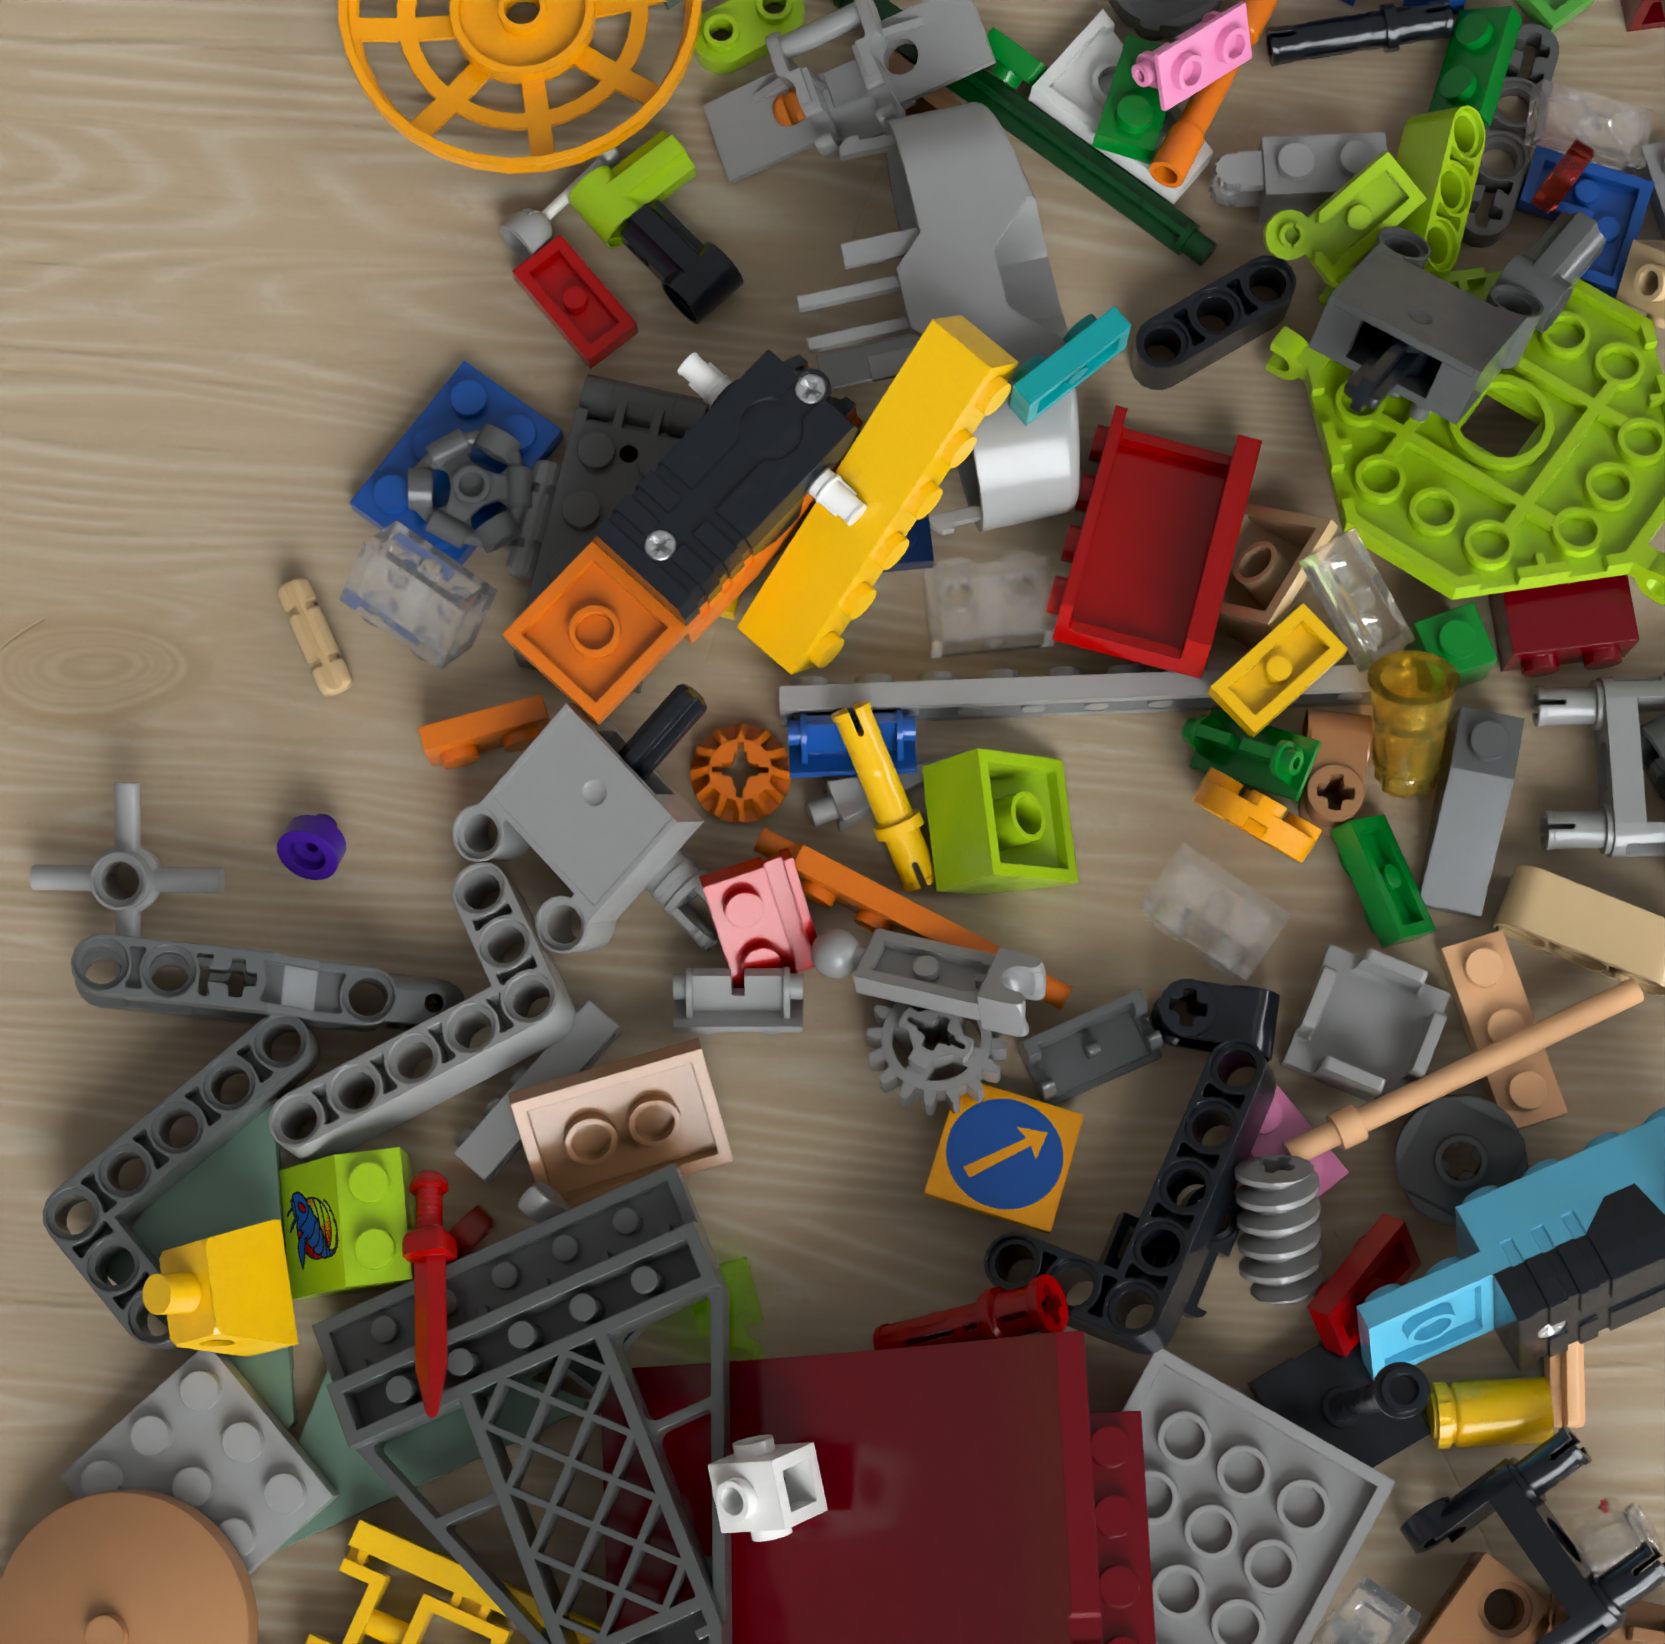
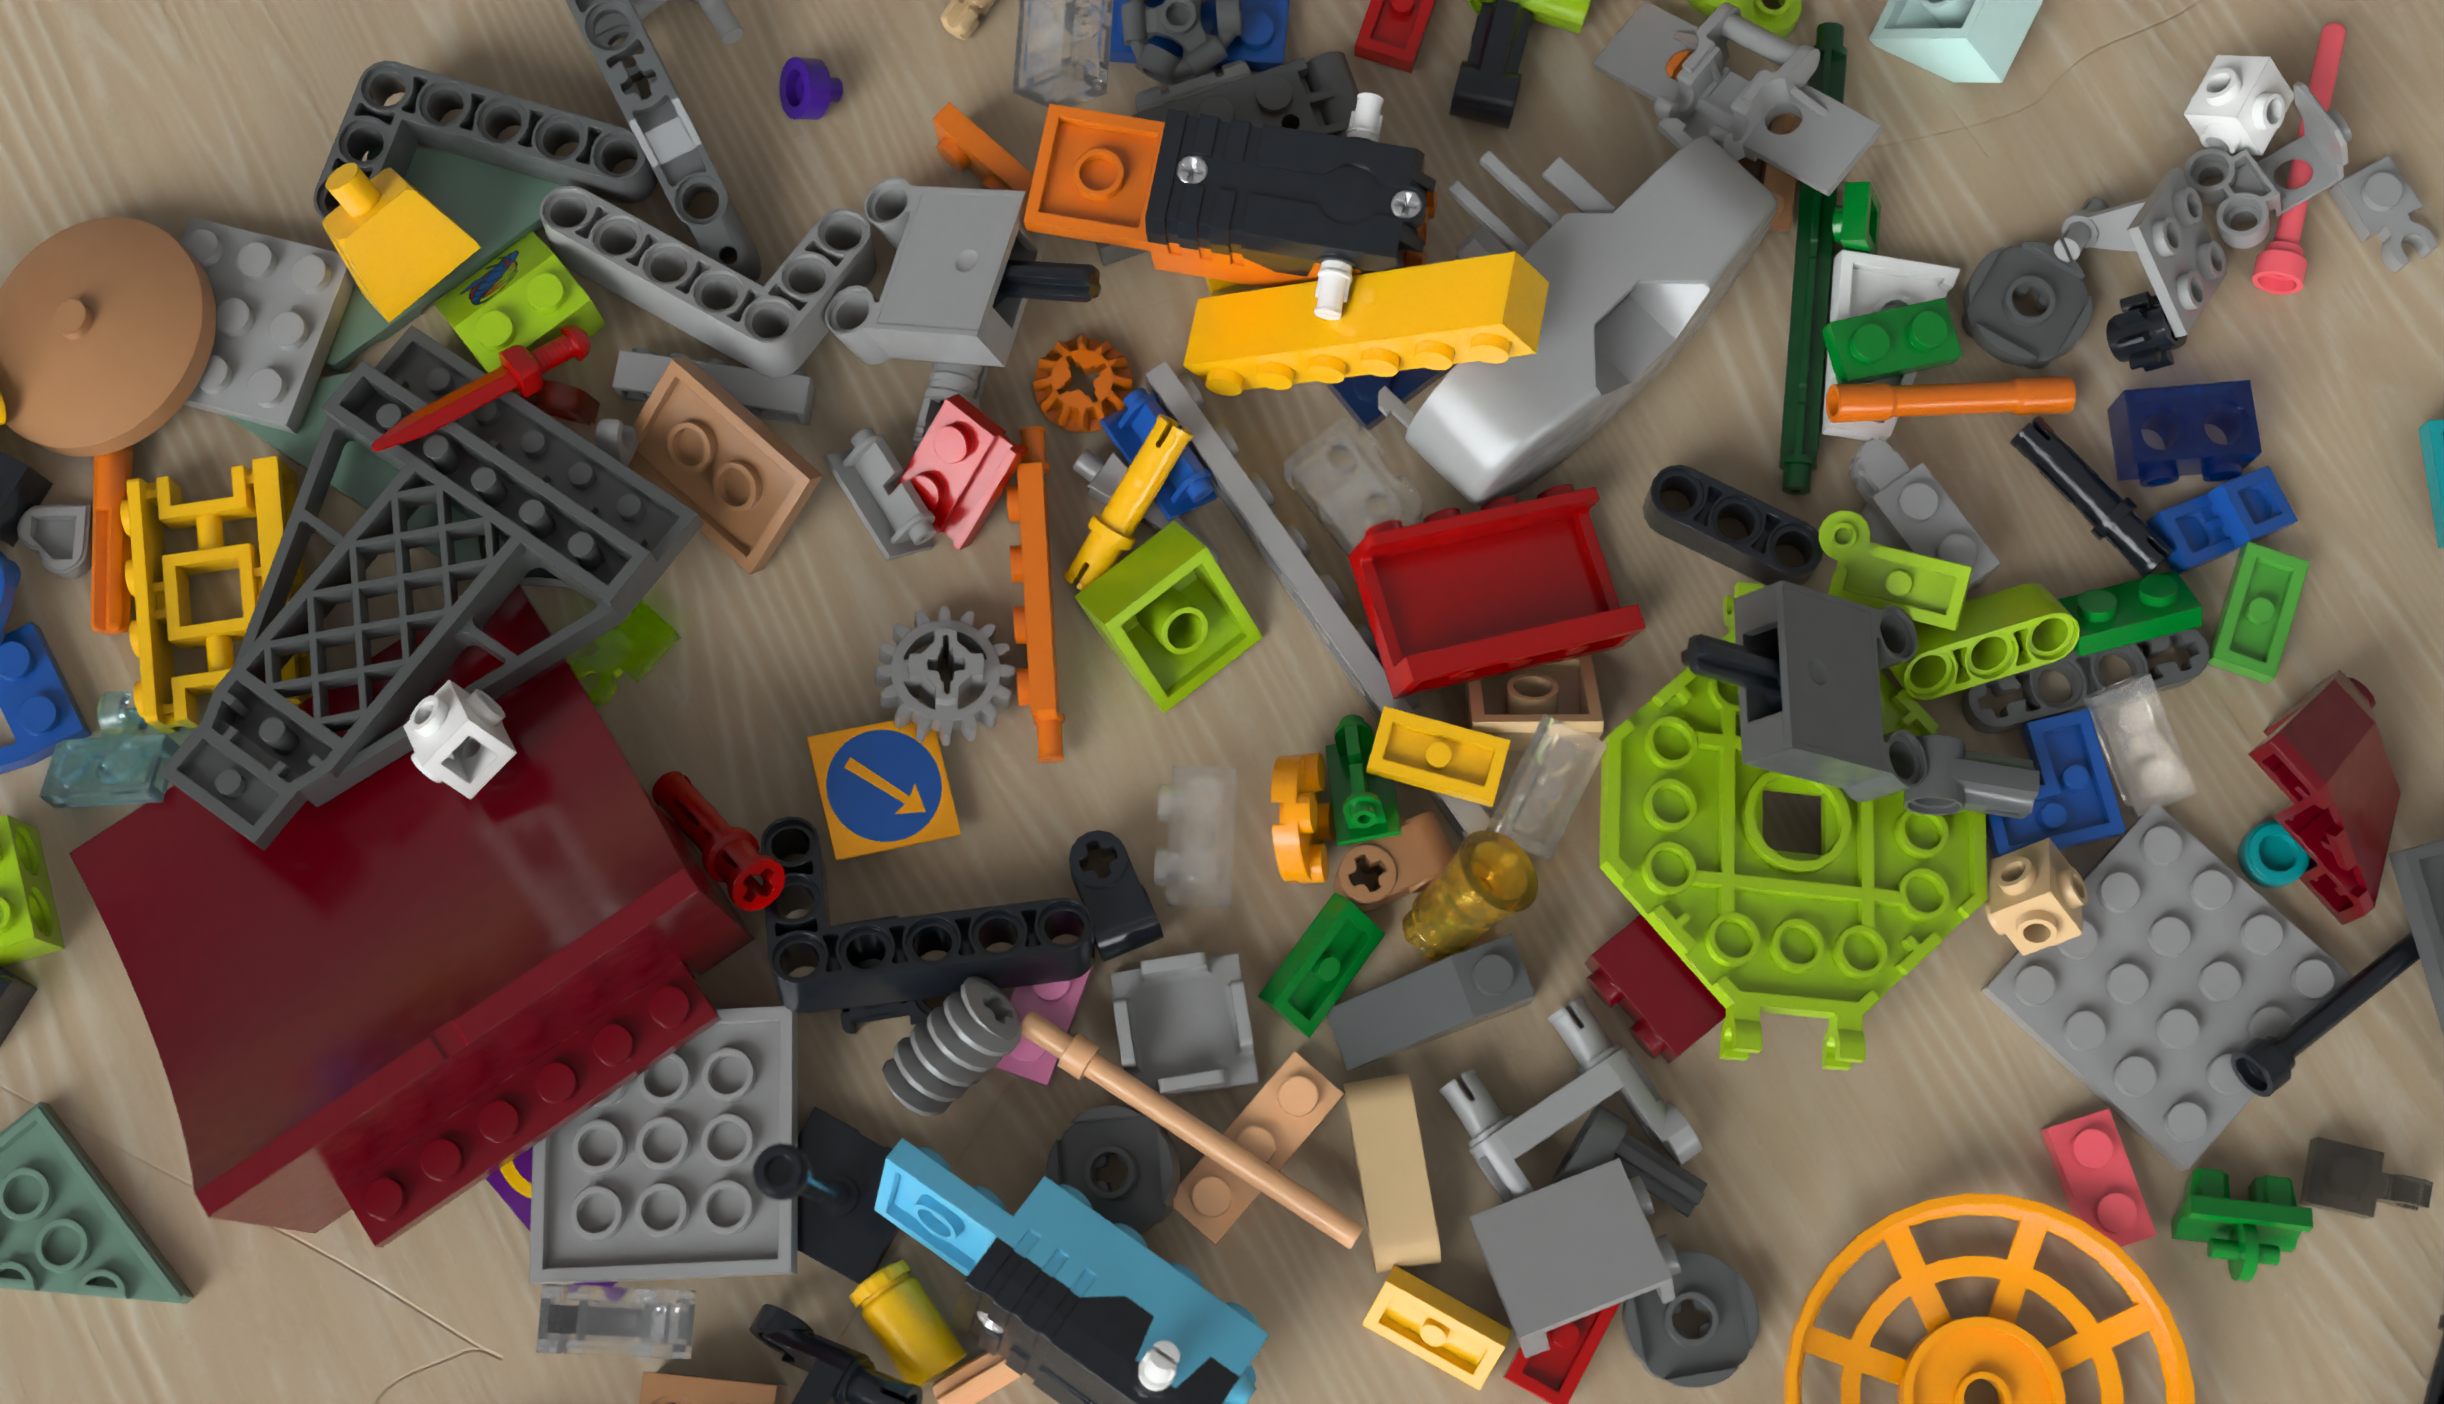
camera: 60 degrees right, 0 degrees up
(936, 976) = (992, 632): light grey plate -> none
(1087, 348) = (1589, 405): teal plate -> none
(1091, 1049) = (1020, 806): dark grey hinge -> none
(1196, 56) = (1956, 363): bright pink hinge -> none
(1377, 1259) = (973, 1150): red plate -> none
(1459, 639) = (1565, 901): green brick -> none
(1563, 176) = (2071, 743): clear red tile -> none

